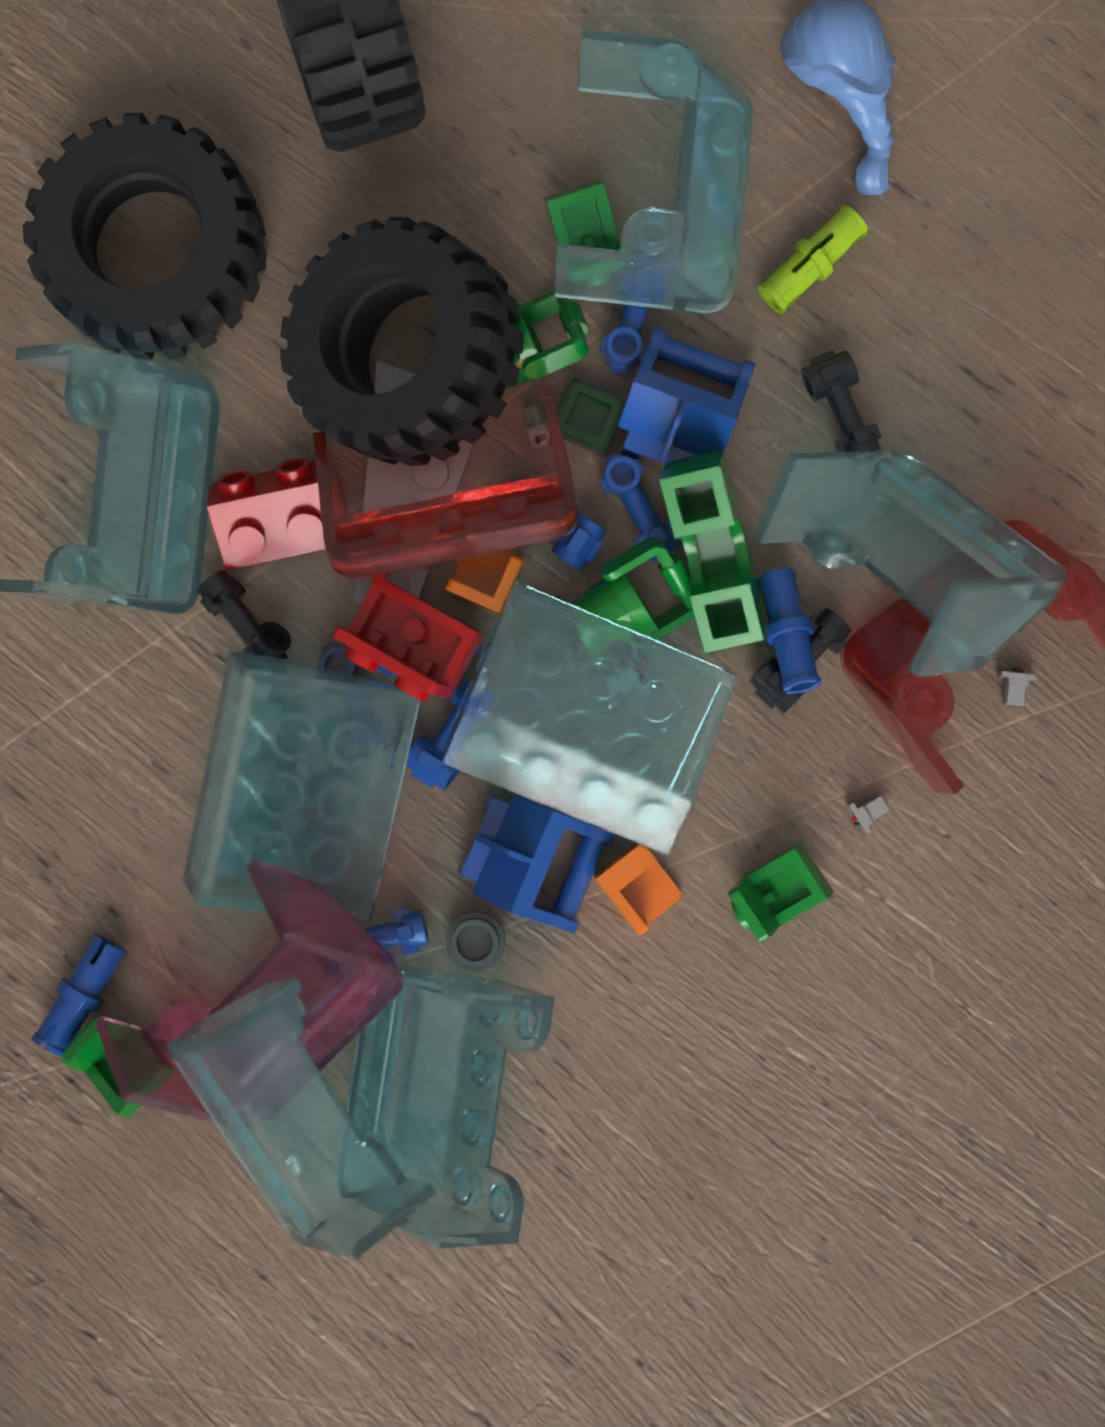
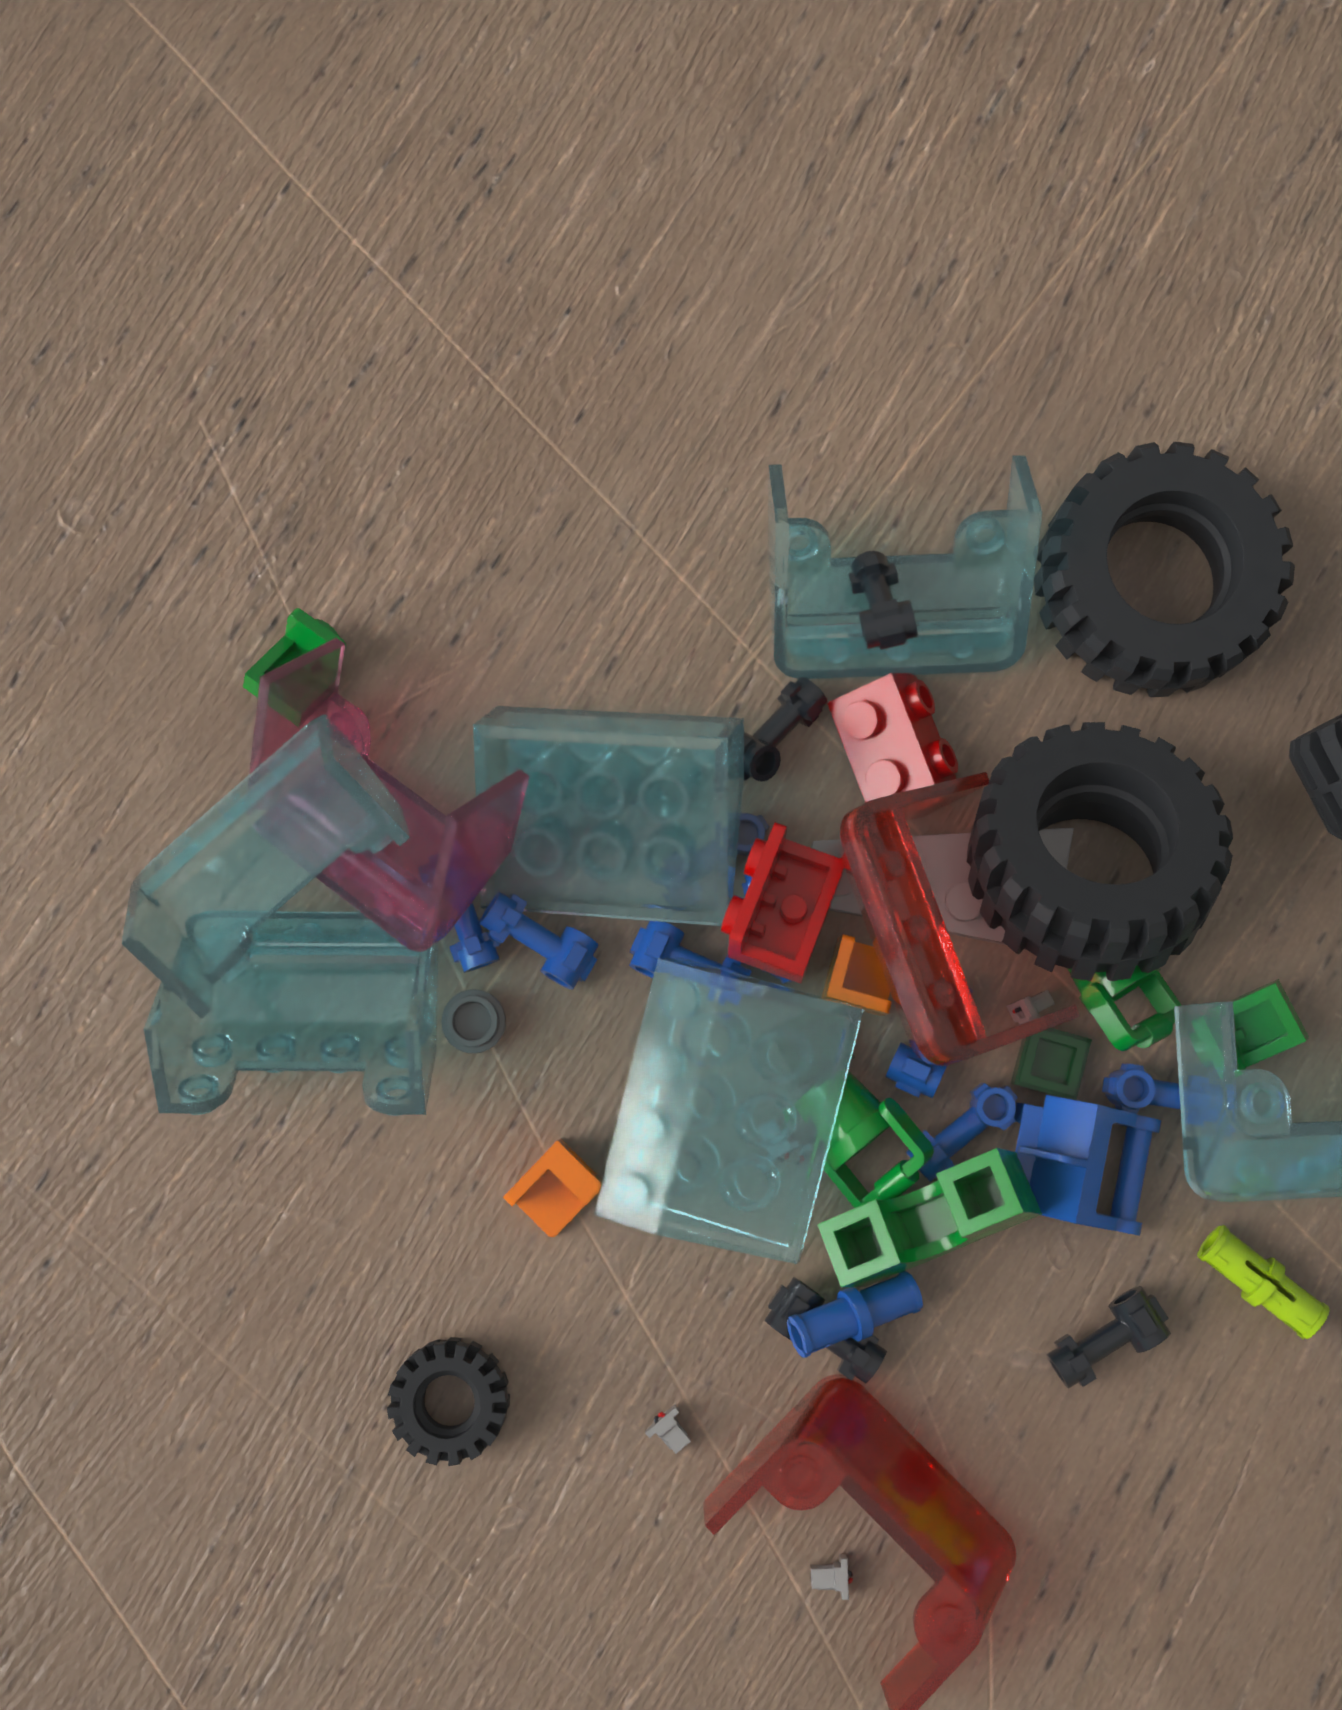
camera: 85 degrees right, 5 degrees down
(79, 994) = (364, 618): blue pin -> none
(156, 502) = (887, 621): none -> black bar
(427, 846) = (567, 956): none -> blue bar
(516, 852) = (573, 1051): blue piece -> none
(778, 891) = (570, 1343): green bracket -> none
(840, 1034) = (423, 1432): none -> black tyre
(920, 539) = (976, 1449): clear light blue windscreen -> none

